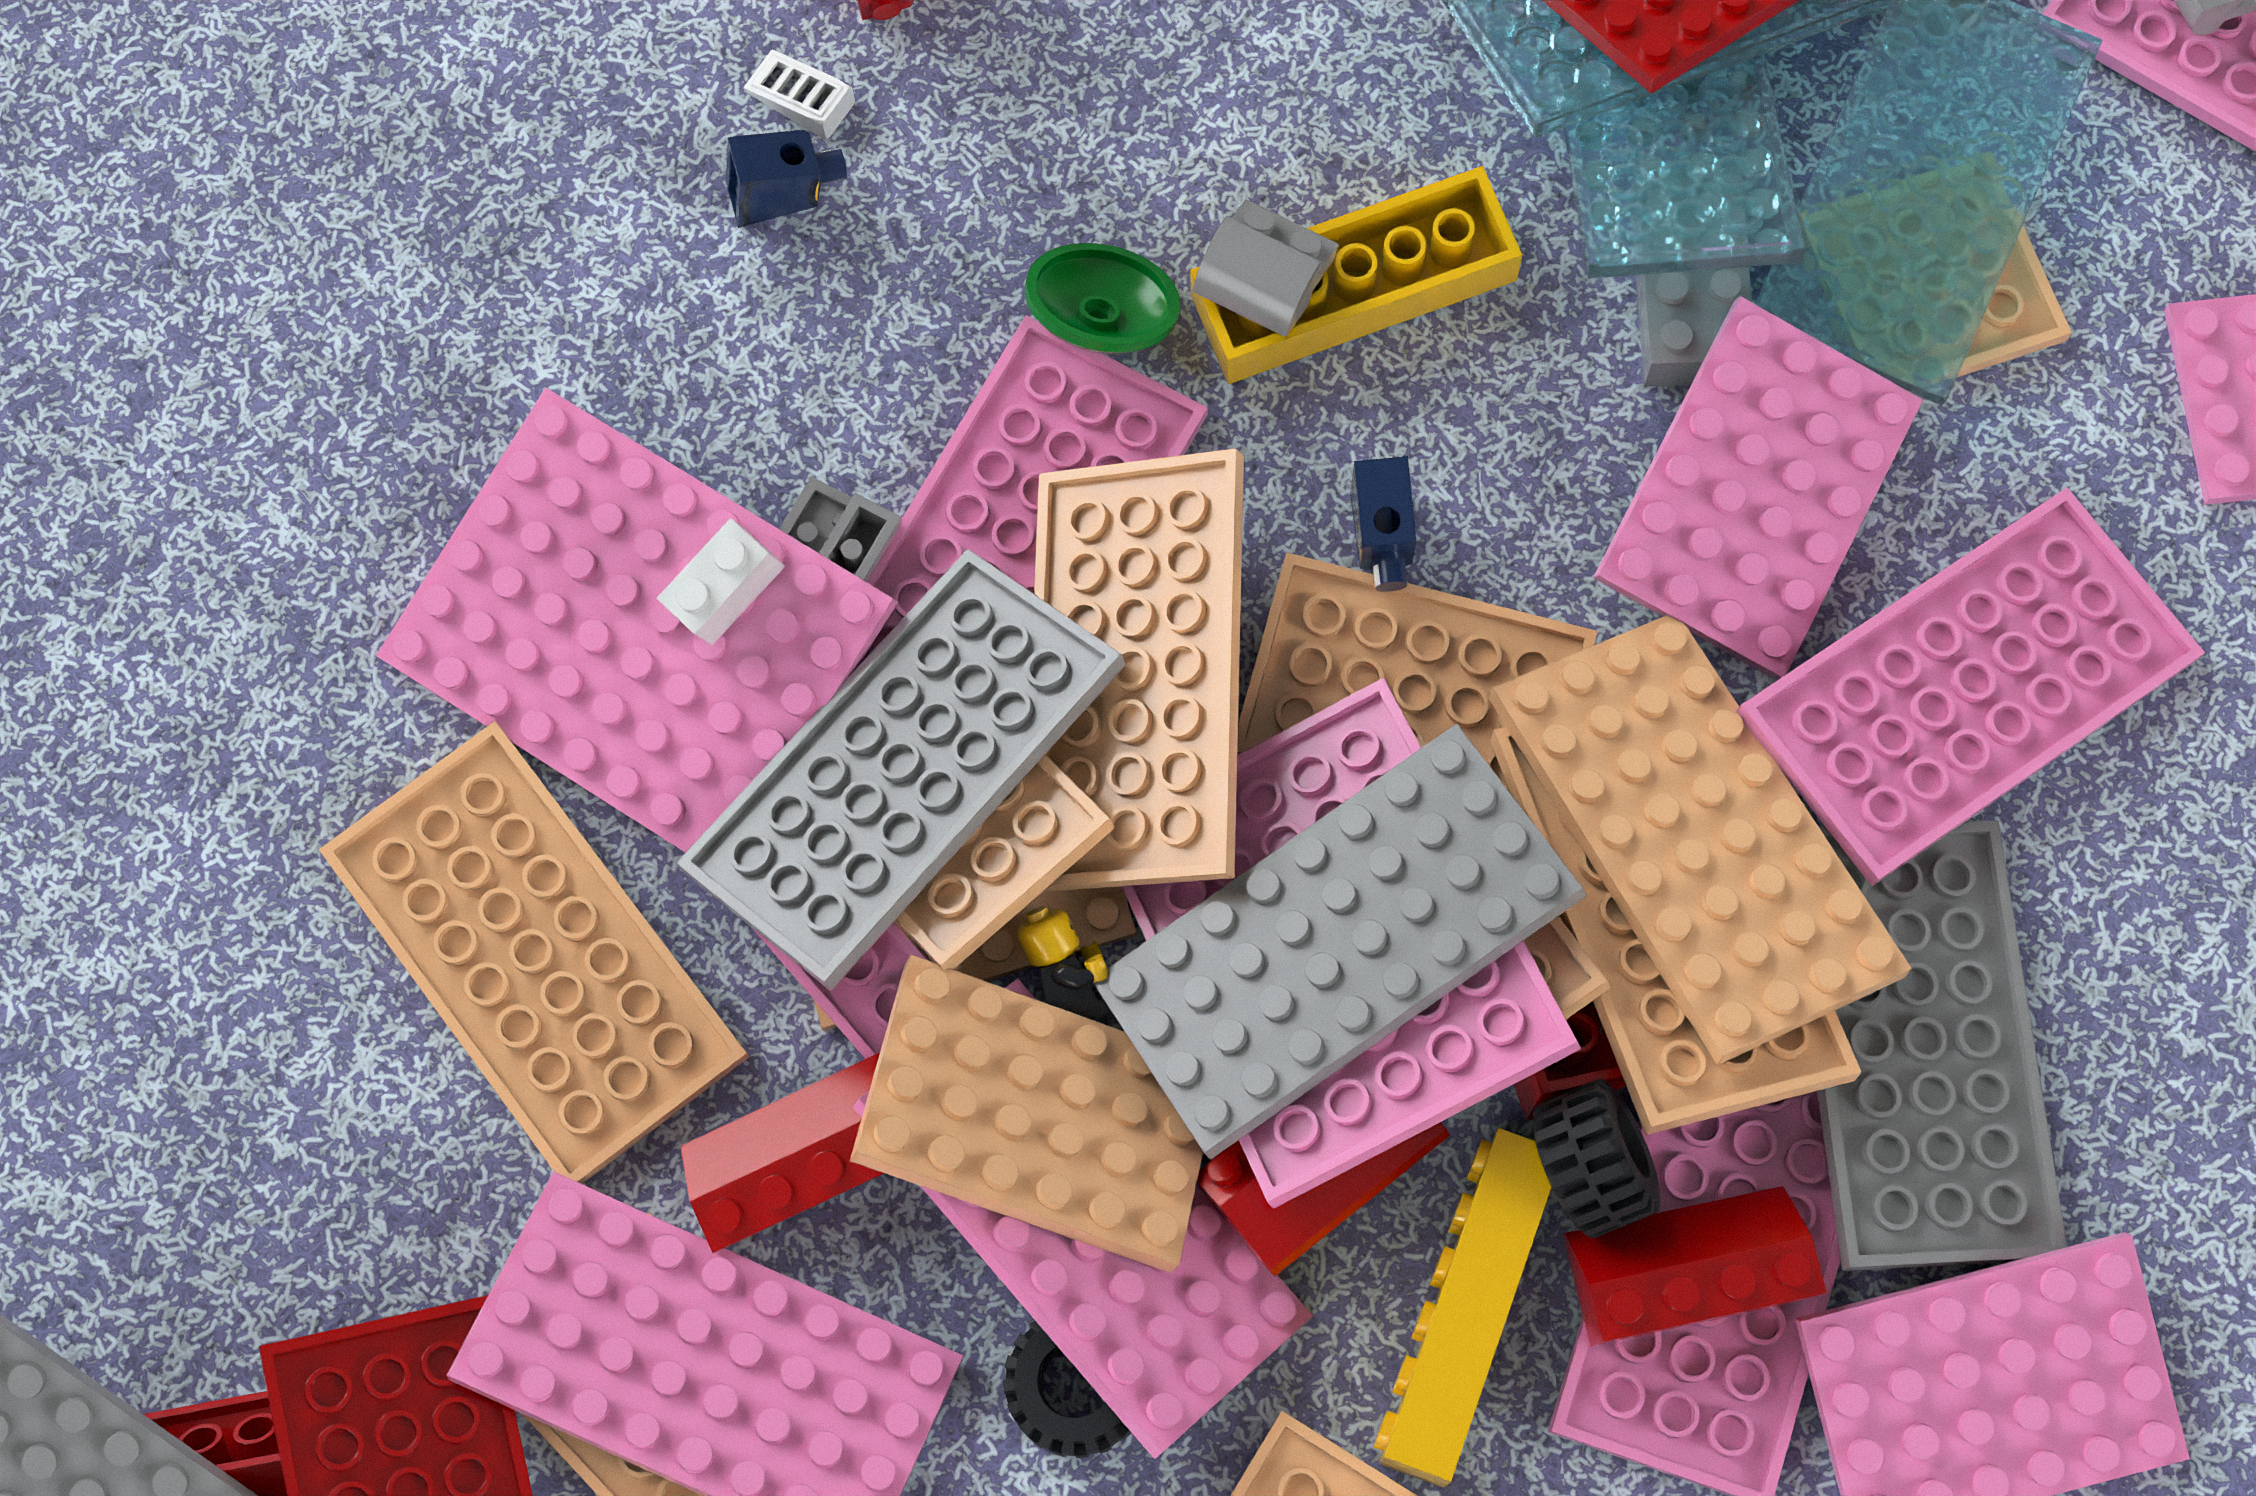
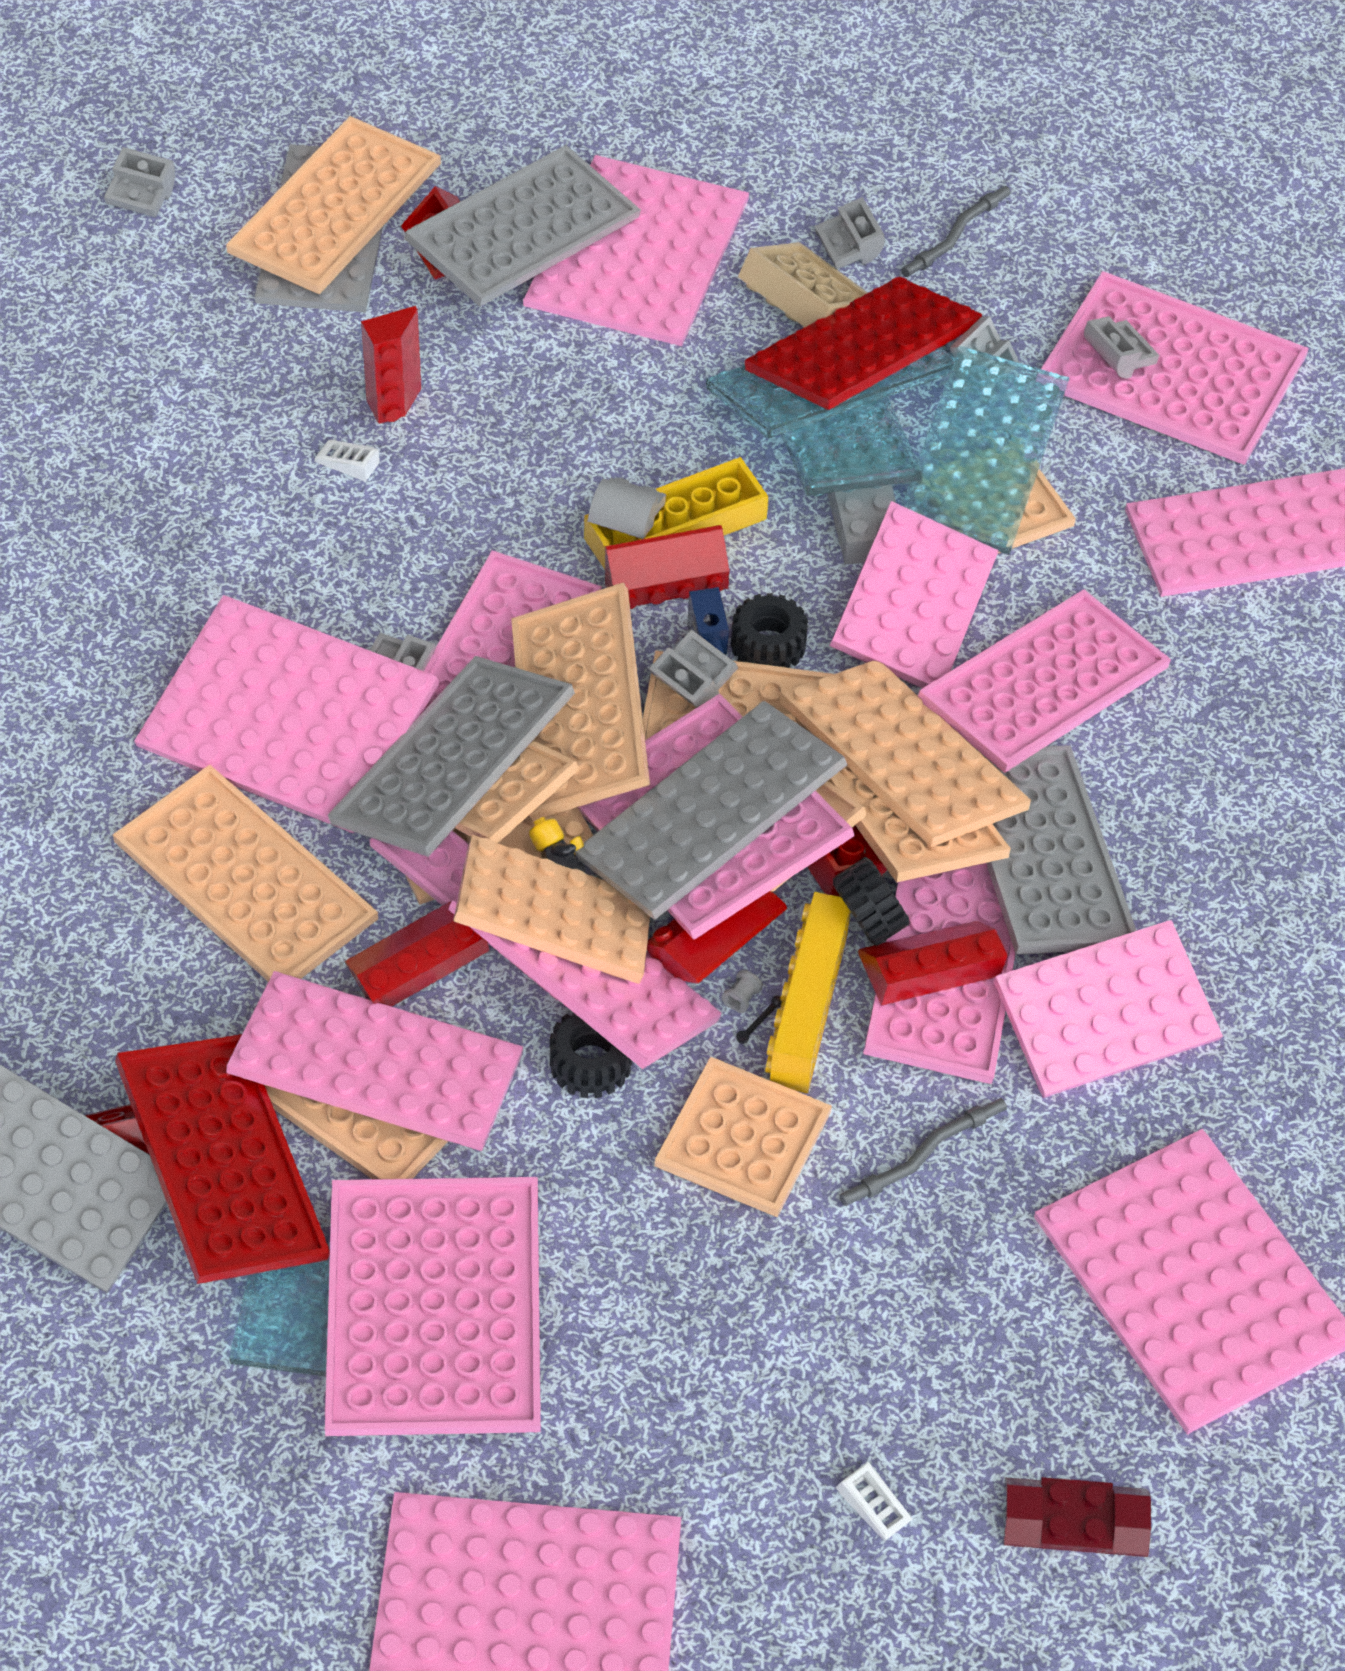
camera: 15 degrees left, 20 degrees down
(720, 582) = (339, 670): white brick -> none
(777, 174) = (340, 492): dark blue torso -> none
(1102, 298) = (534, 538): green dish -> none
(1326, 388) = (669, 565): none -> slope
(1344, 617) = (694, 669): none -> light grey brick
(1345, 1362) = (743, 1036): none -> black hinge
(1353, 1277) = (742, 991): none -> light grey bush
(1499, 496) = (769, 614): none -> black tyre

